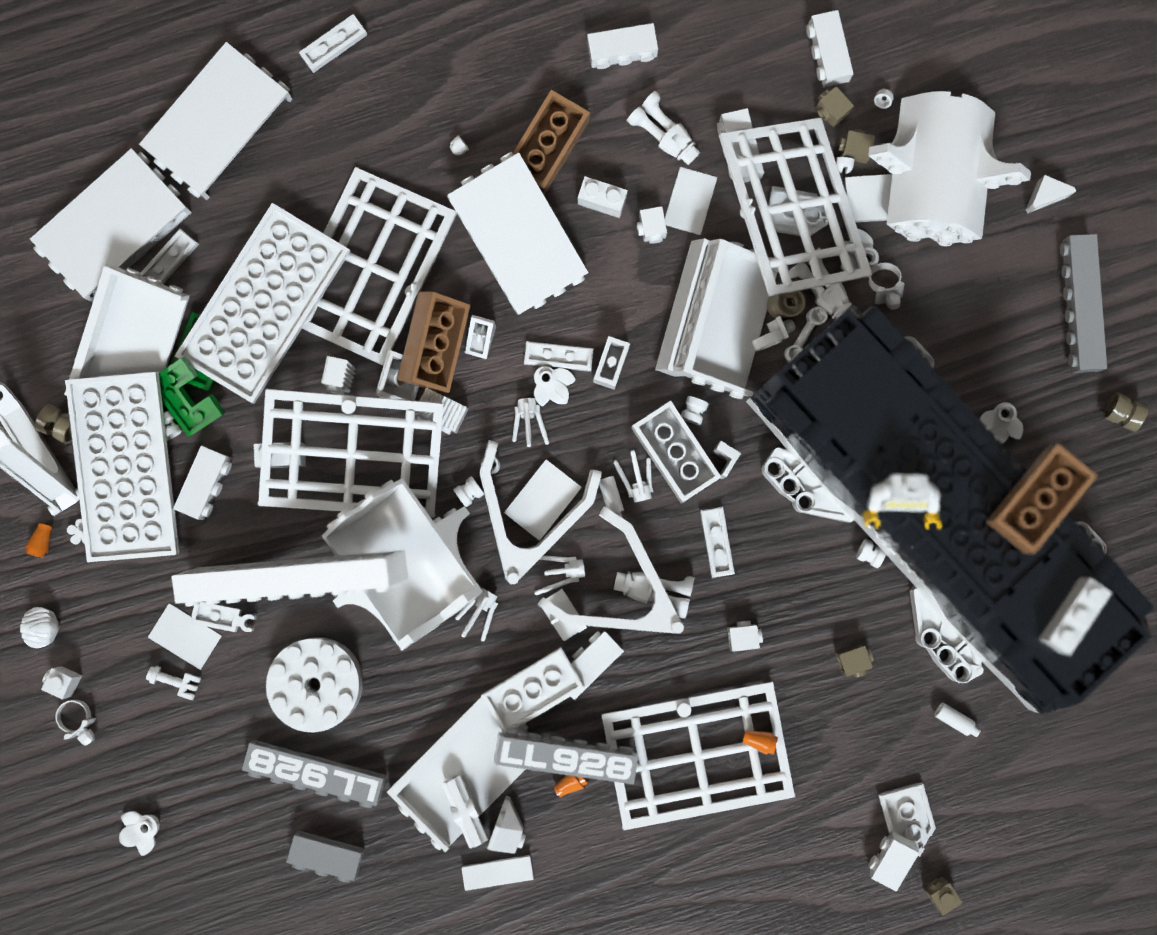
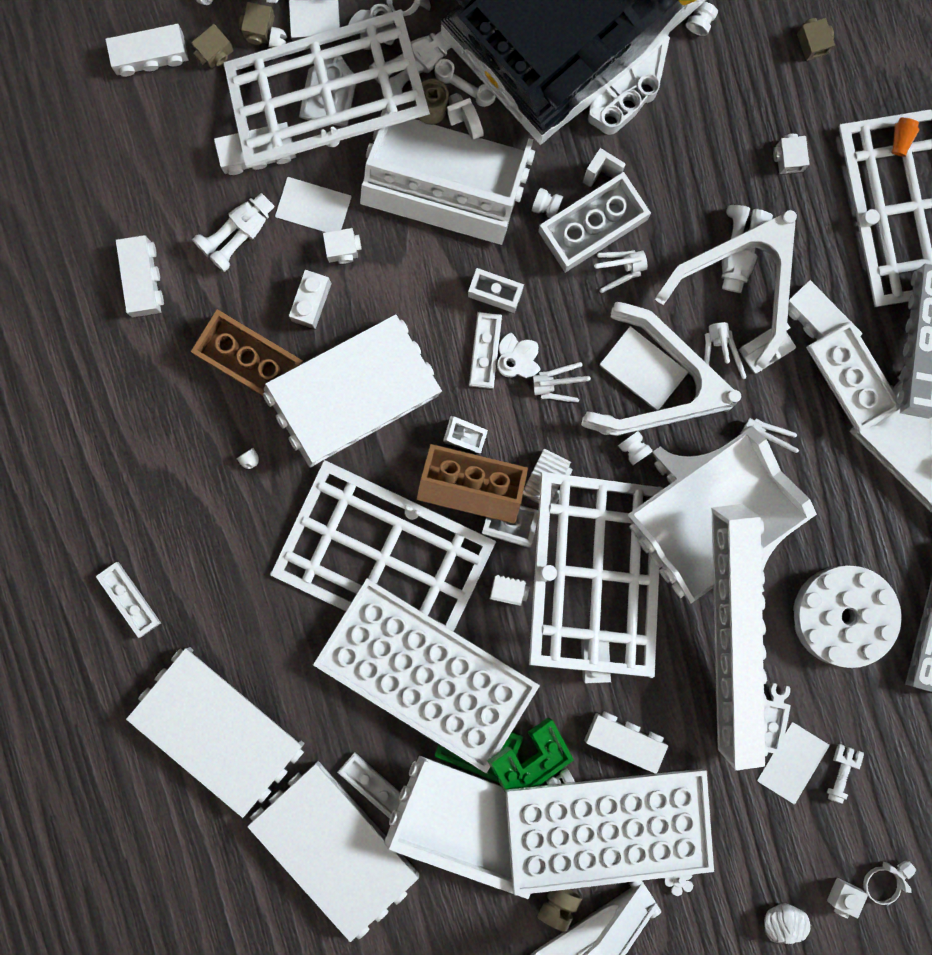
camera: 90 degrees left, 0 degrees up
(39, 541) = (690, 926): orange cone -> none
(611, 495) = (641, 293): white cylinder -> none
(717, 542) = (689, 182): white tile -> none

